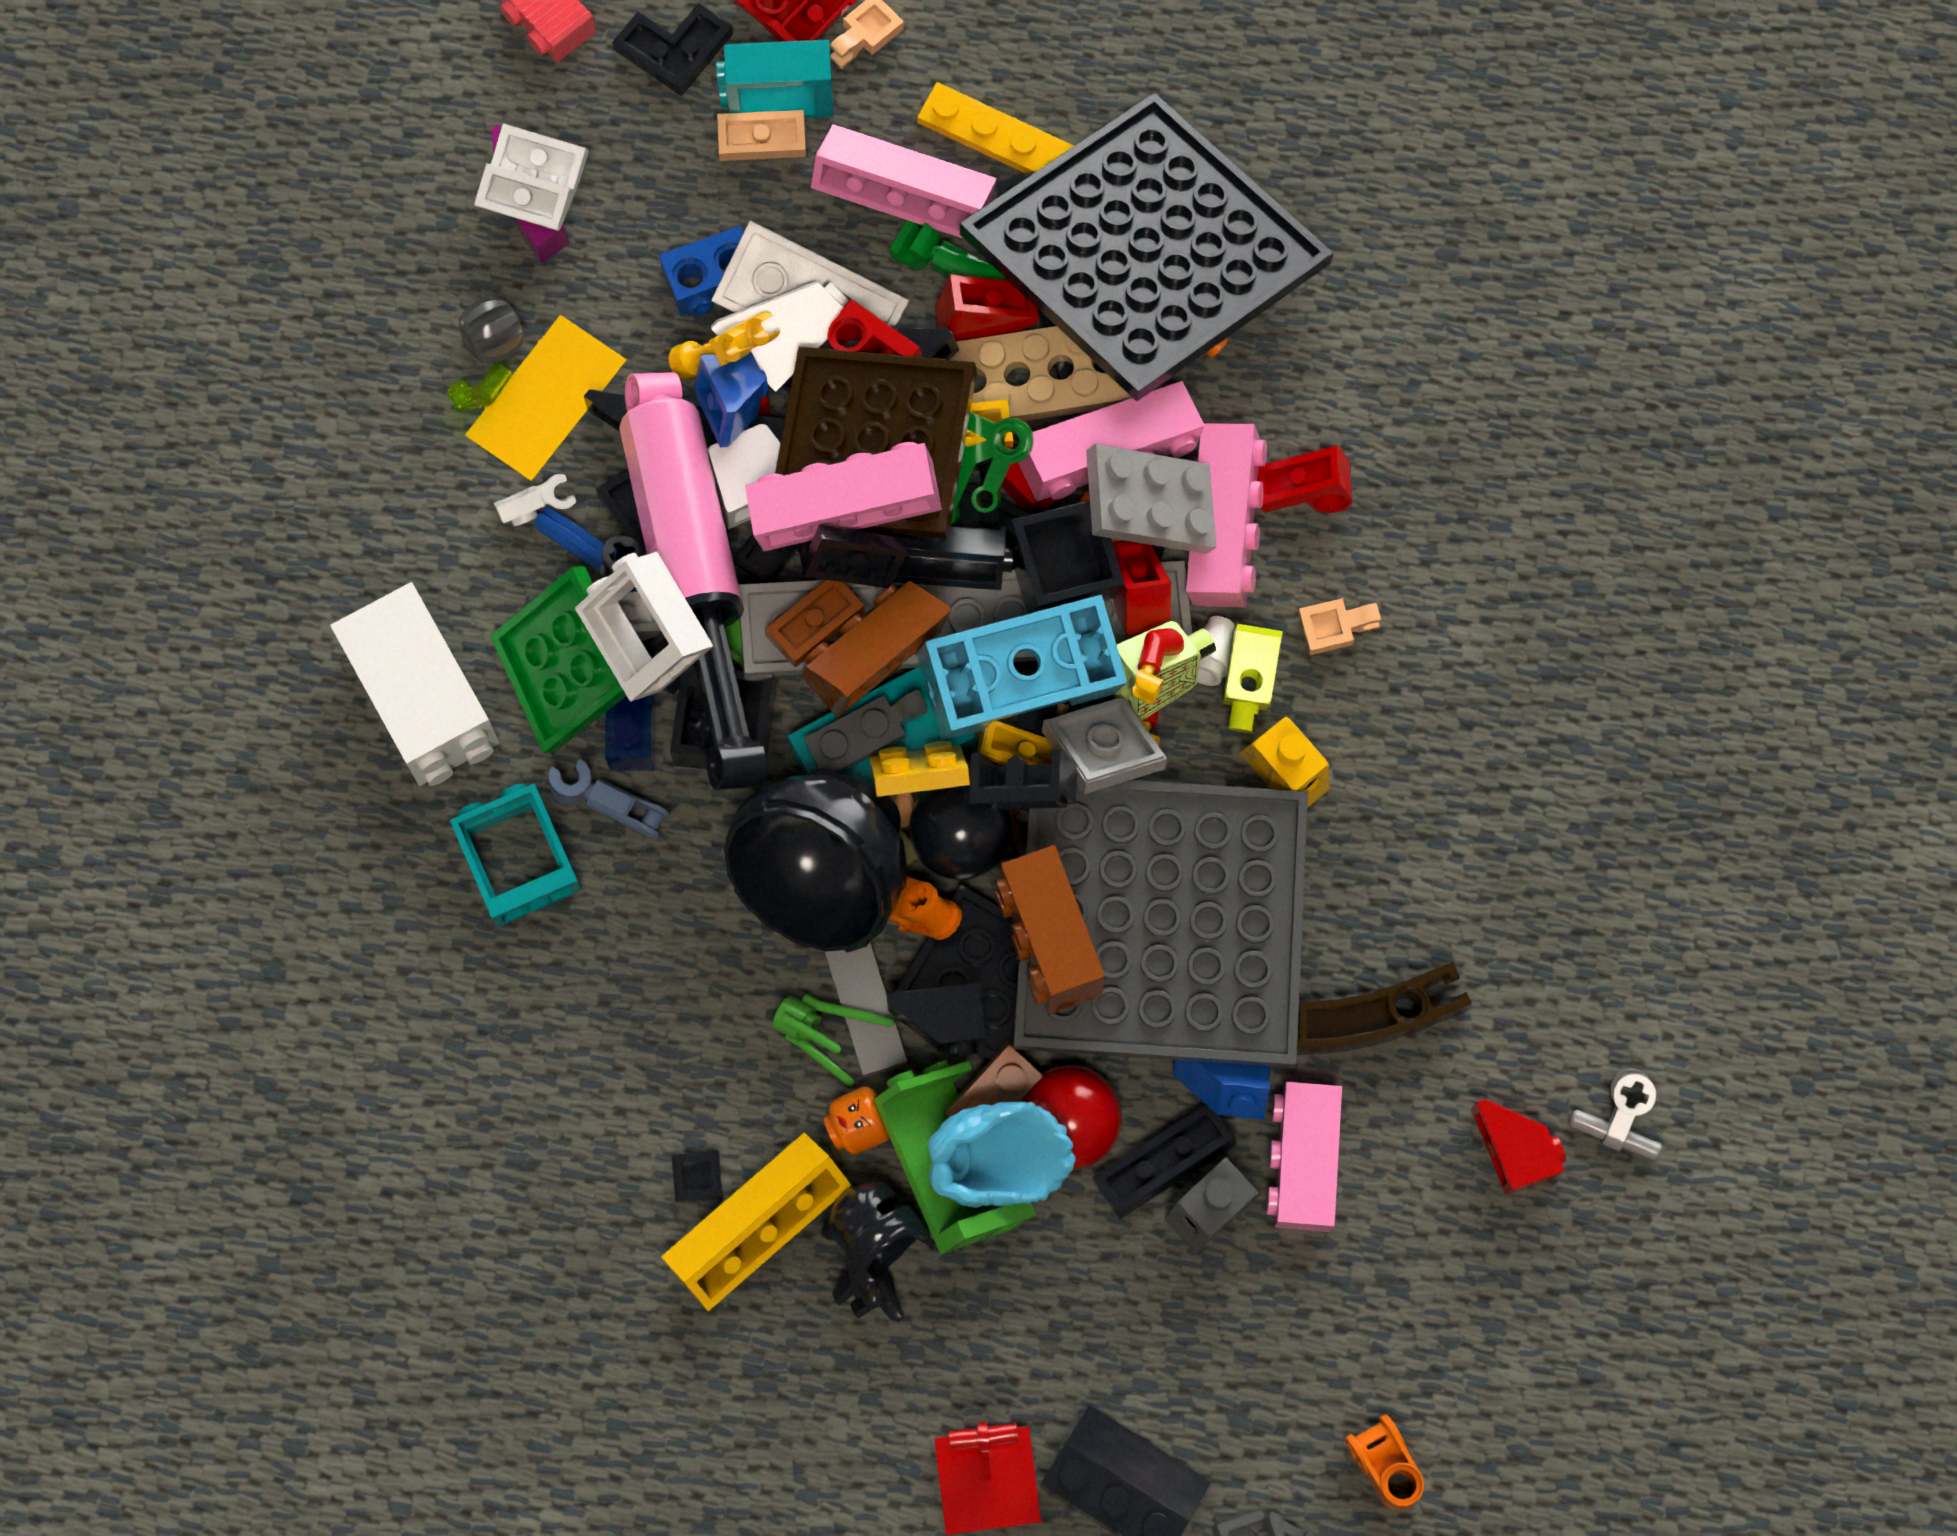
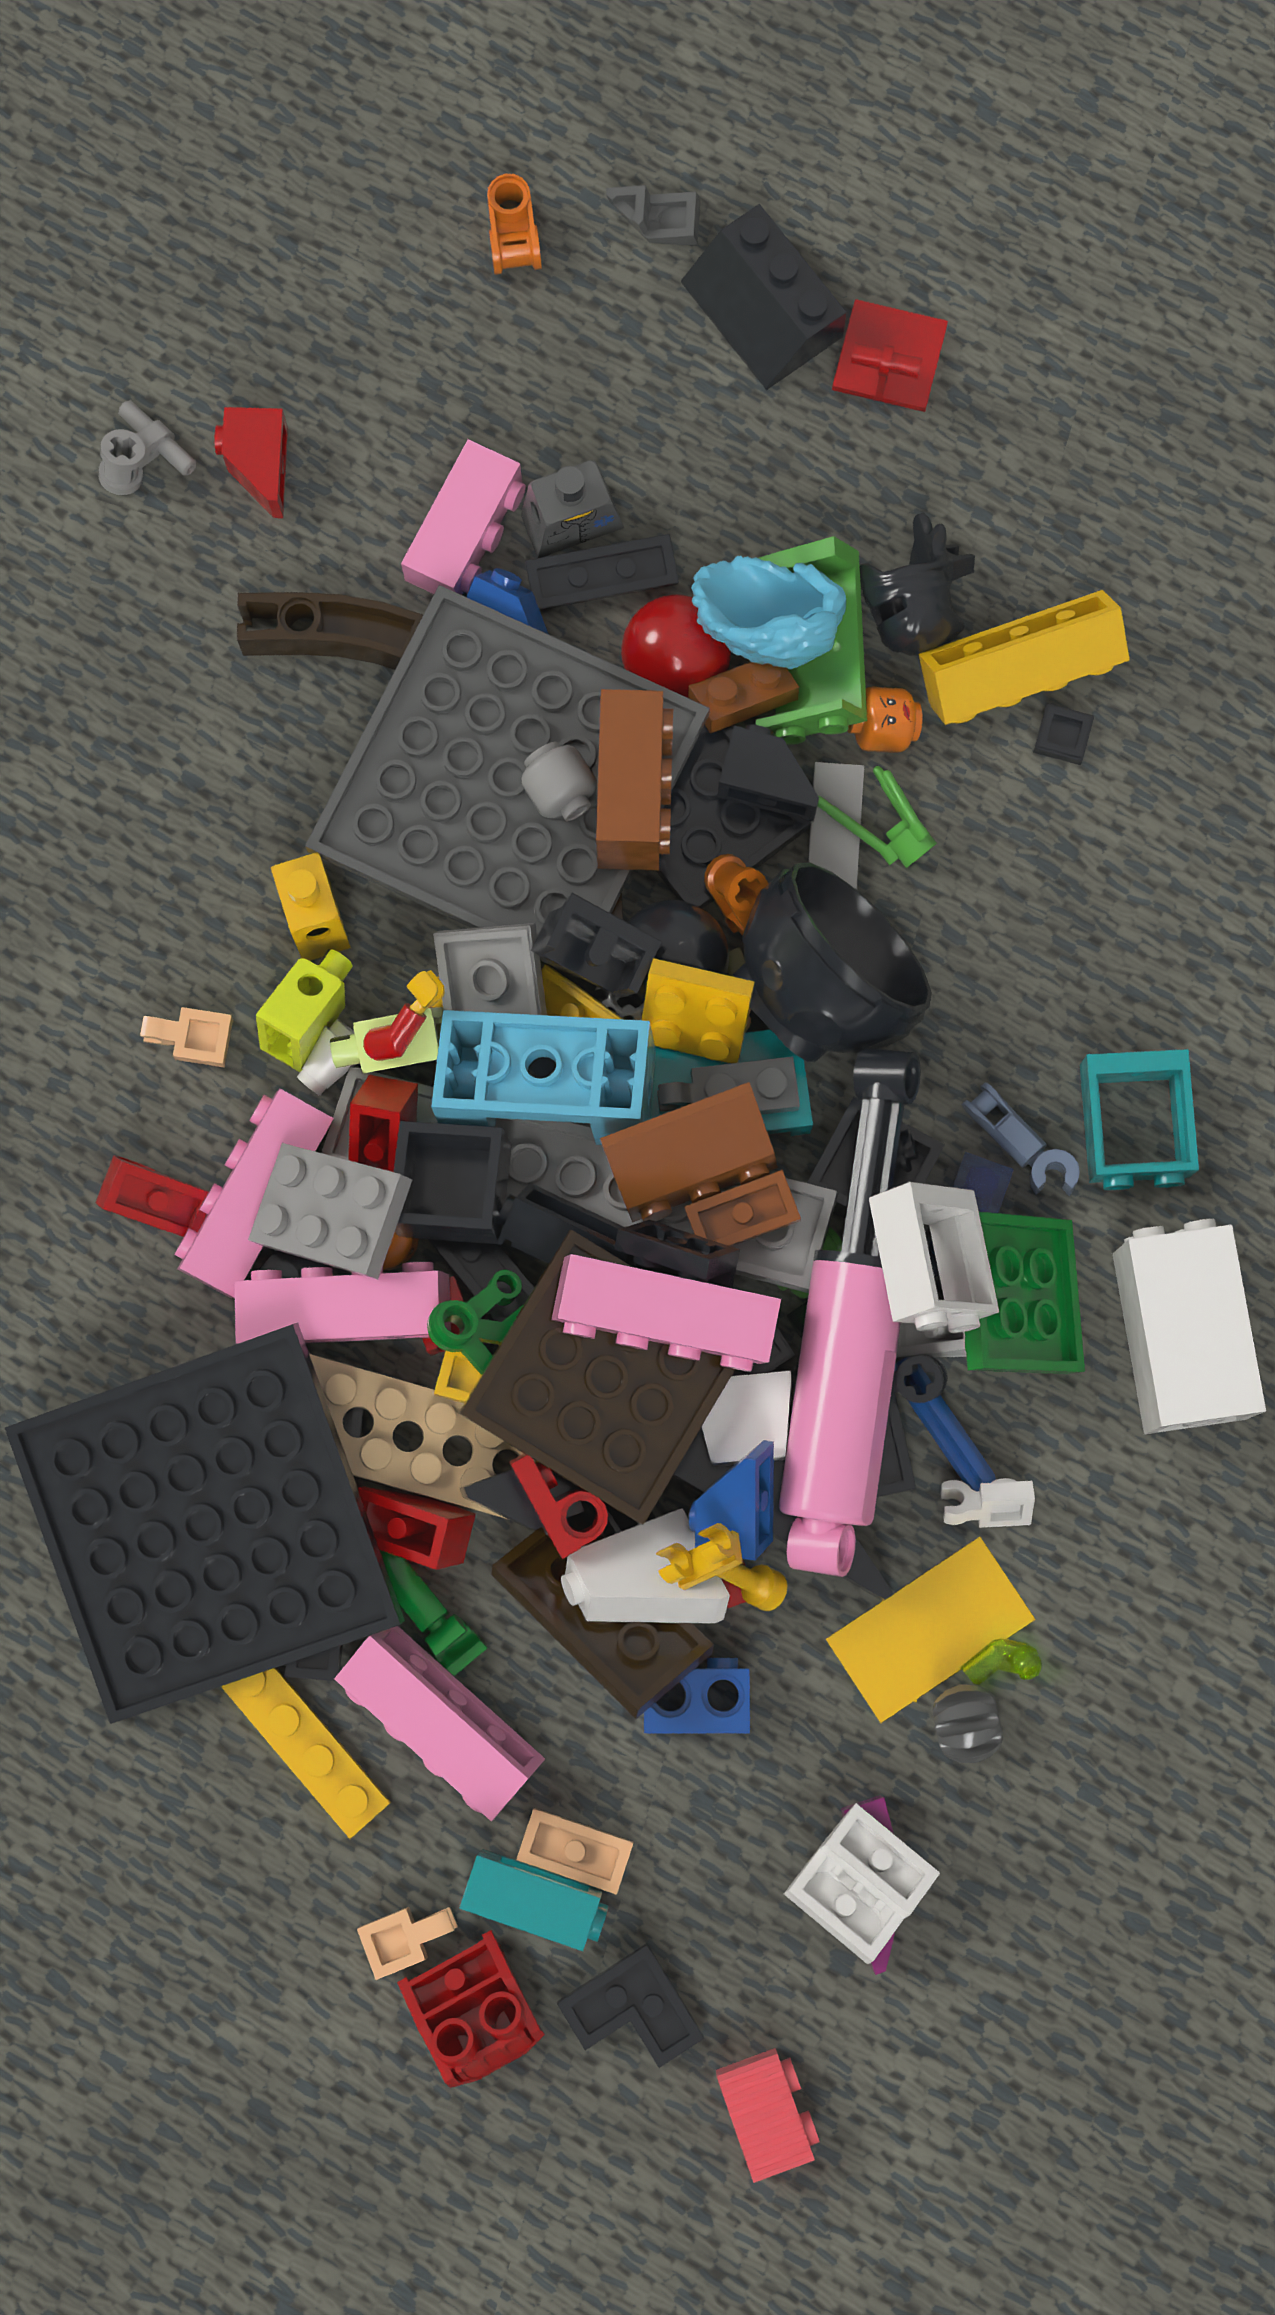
camera: 155 degrees left, 5 degrees up
(1114, 914) = (558, 781): none -> light grey head

